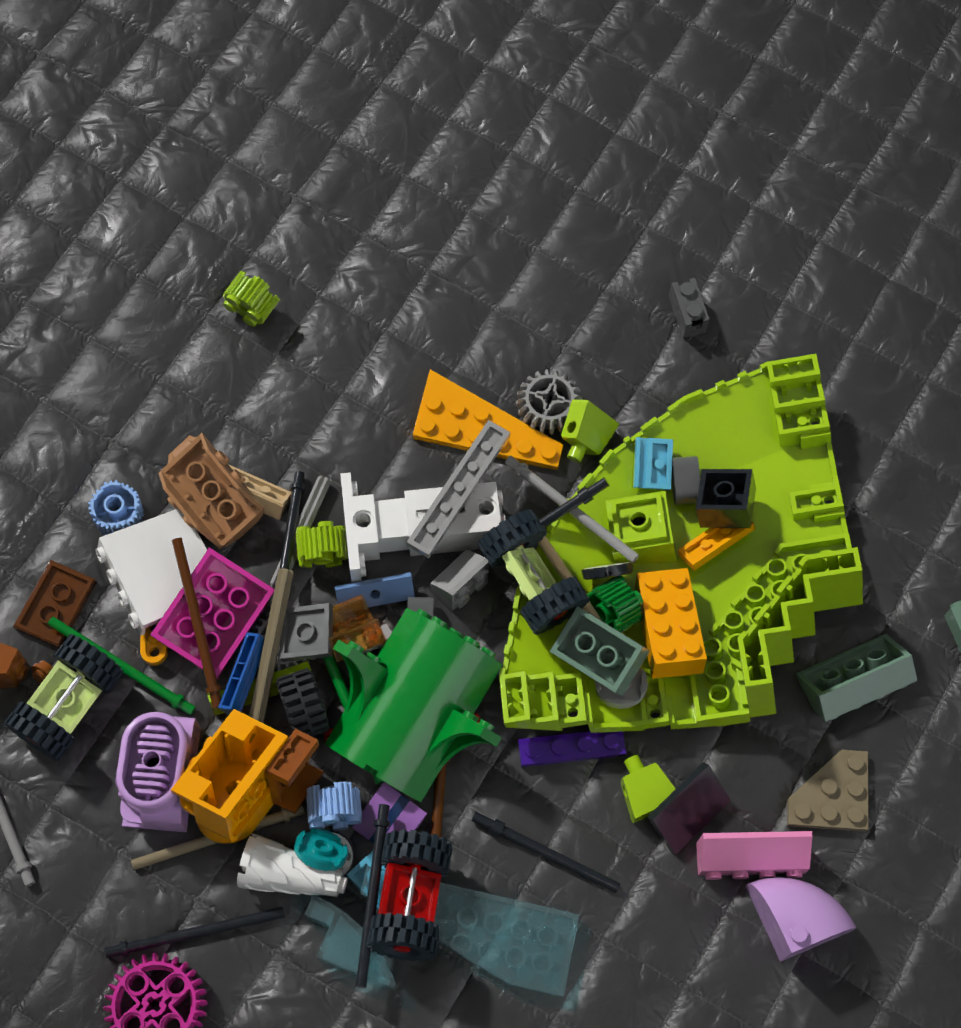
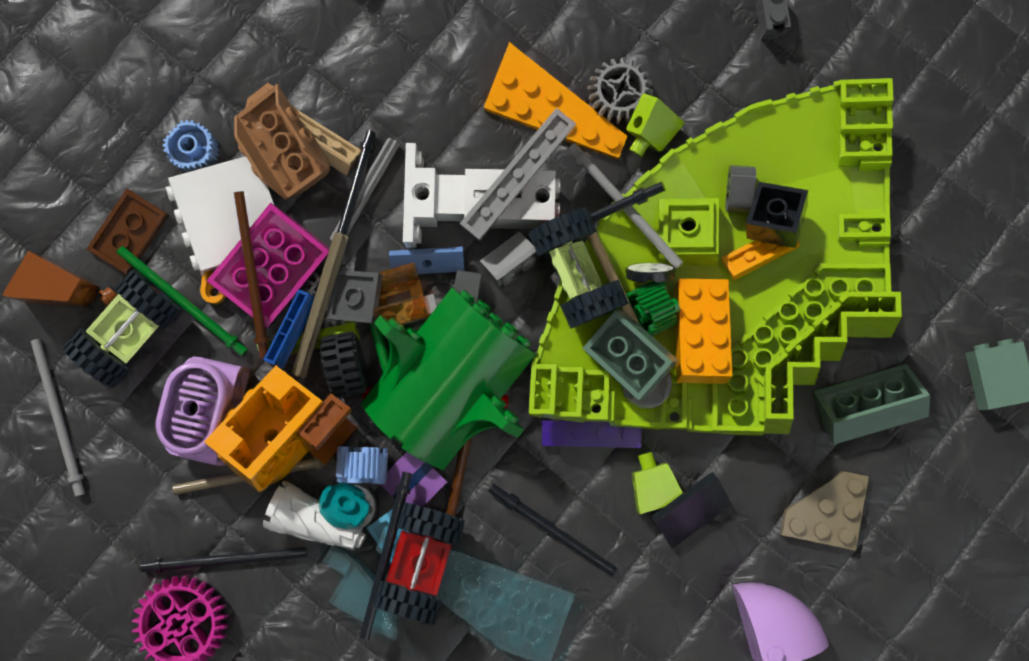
camera: 10 degrees right, 15 degrees up
(321, 545) = (380, 209): lime brick -> none
(653, 463) = (711, 168): medium azure plate -> none
(754, 854) = (745, 562): bright pink slope -> none

